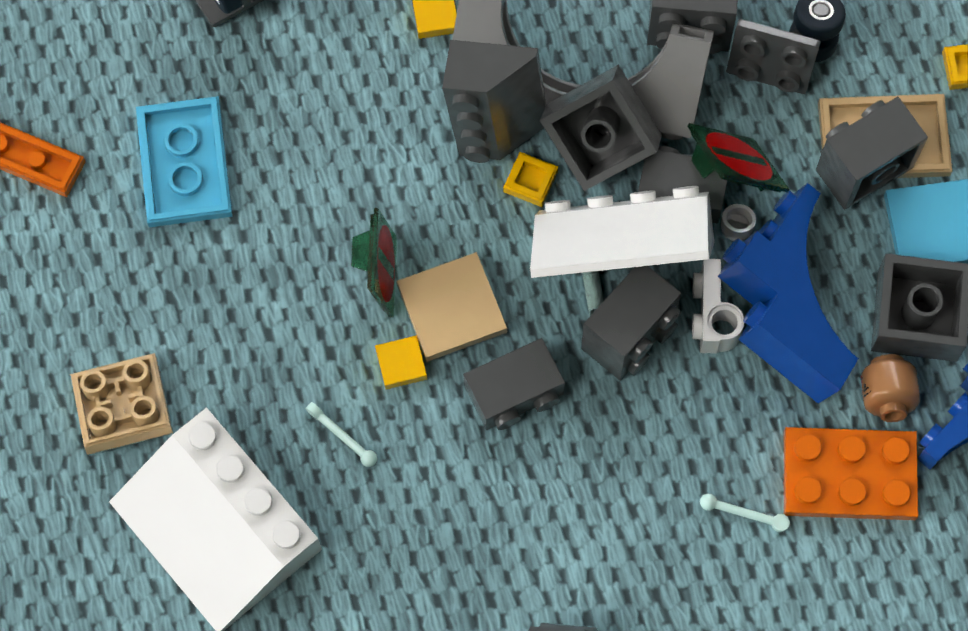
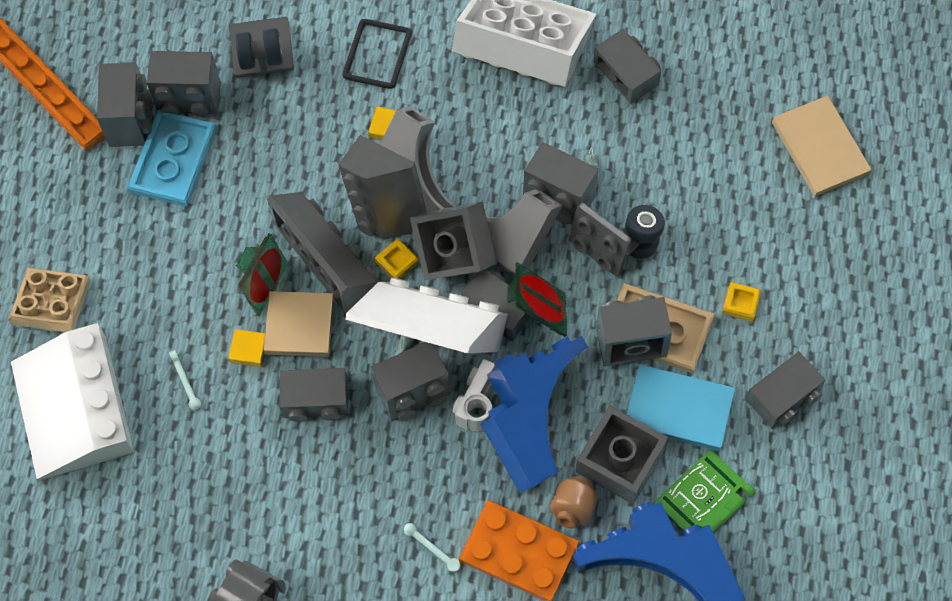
camera: 25 degrees right, 5 degrees down
(96, 116) = (123, 104): none -> dark grey brick
(159, 58) = (184, 82): none -> dark grey brick
(438, 204) = (321, 248): none -> dark grey slope
(737, 222) = (526, 341): white hinge -> none

